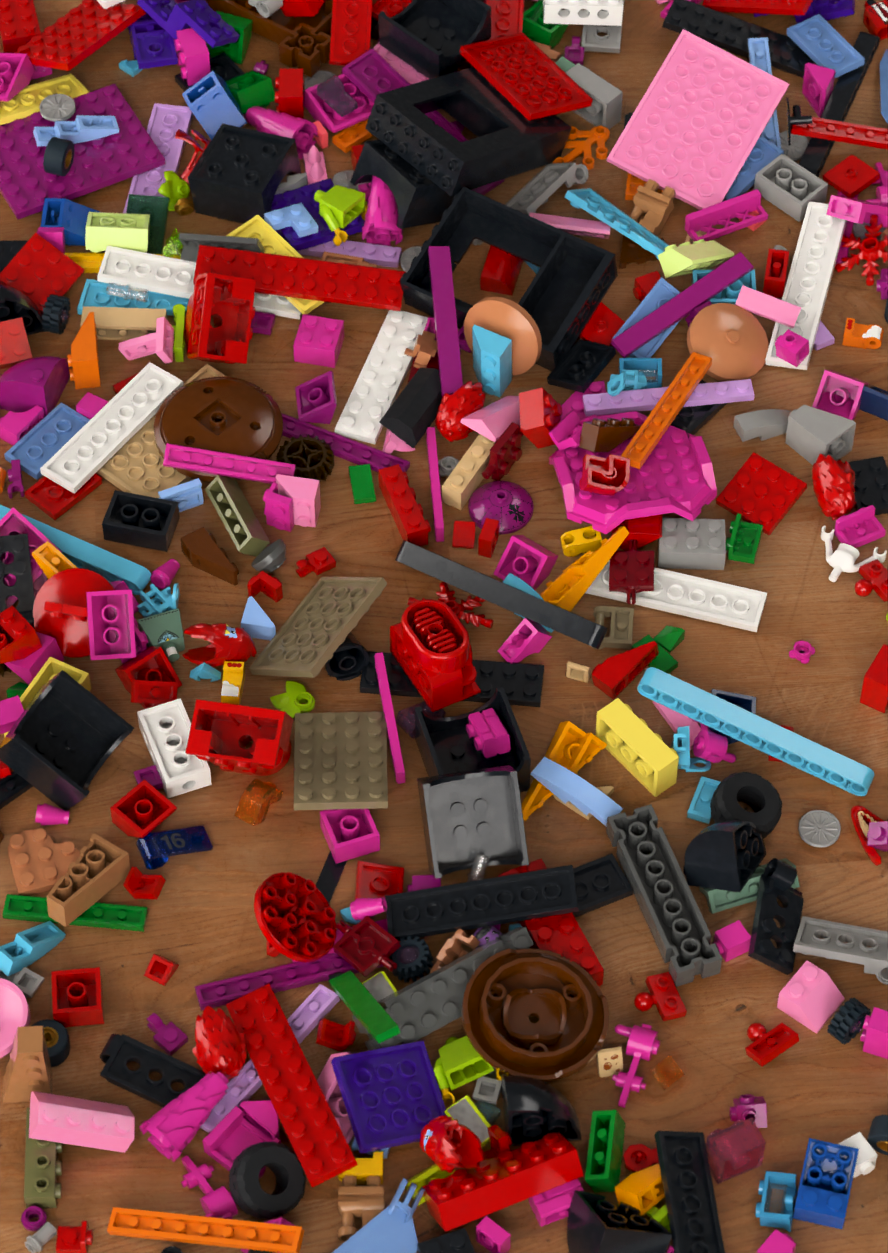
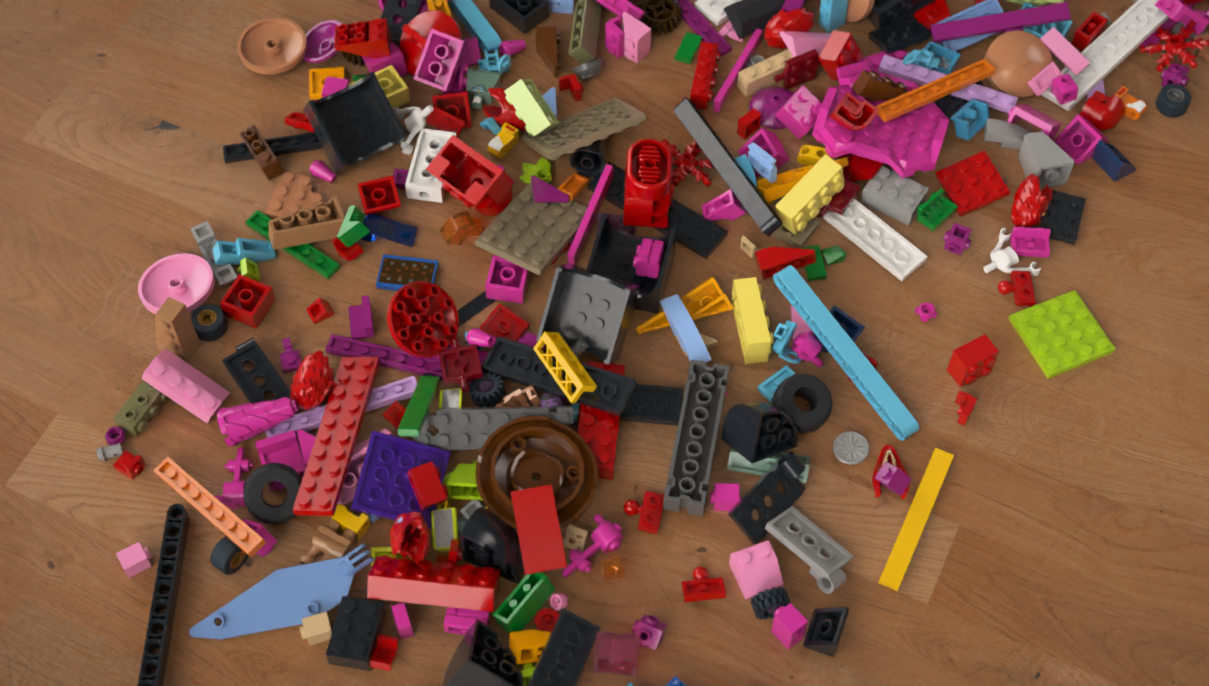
camera: 30 degrees right, 5 degrees up
(49, 963) = (249, 269): none -> lime tile
(125, 707) = (413, 123): none -> white piece
(140, 857) = (352, 226): none -> green slope
(217, 954) = (361, 320): none -> magenta panel
(228, 881) = (400, 271): none -> tile
(249, 630) = (531, 107): none -> yellowish green slope
(317, 561) = (620, 86): red plate -> none
(324, 717) = (546, 193): none -> magenta tile
(345, 697) = (574, 185): none -> orange tile
(426, 1086) = (427, 485): none -> red brick
(464, 534) = (733, 113): red slope -> none
(487, 880) = (564, 360): none -> yellow fence
(536, 499) = (799, 112): none -> dark pink brick
(538, 573) = (762, 162): none -> light blue plate
(579, 1066) = (538, 529): none -> red tile
(615, 582) = (810, 194): none -> light yellow brick
(639, 1137) = (555, 604): none -> bright pink hinge
(717, 424) = (970, 119): none -> dark azure window
(764, 345) = (1043, 79): none -> bright pink tile
(782, 392) = (1048, 124): none -> dark pink panel
(786, 559) = (957, 239): none -> magenta brick
(841, 353) = (1103, 110): none -> red brick

